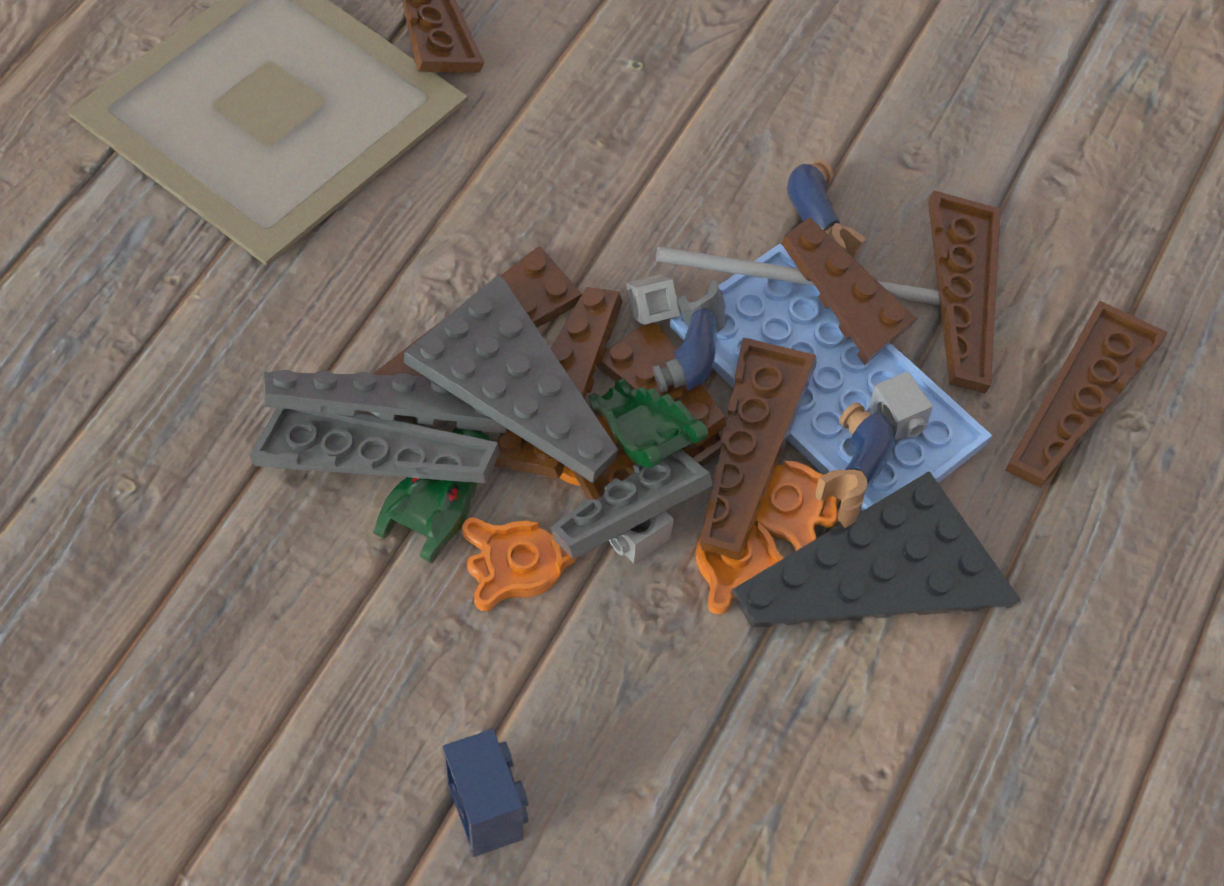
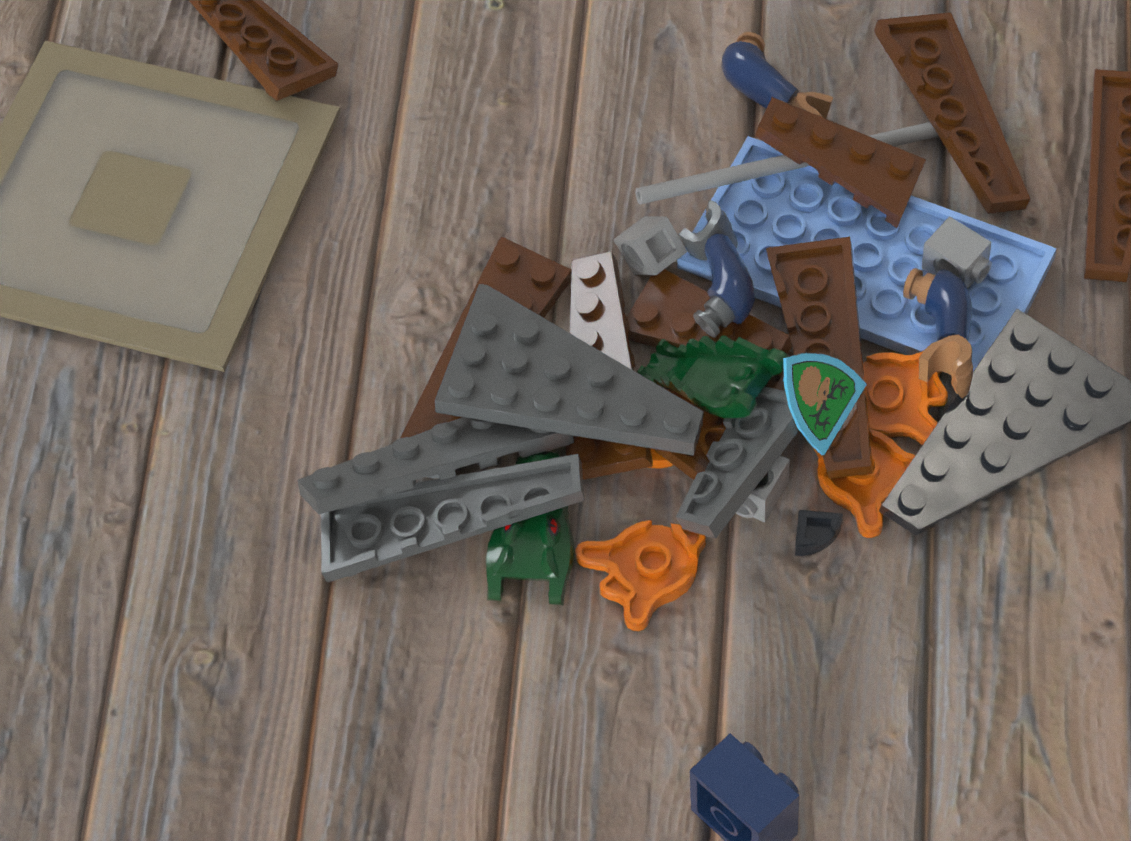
camera: 15 degrees left, 0 degrees up
(670, 588) = (815, 530): none -> black tile
(720, 475) = (820, 395): none -> shield

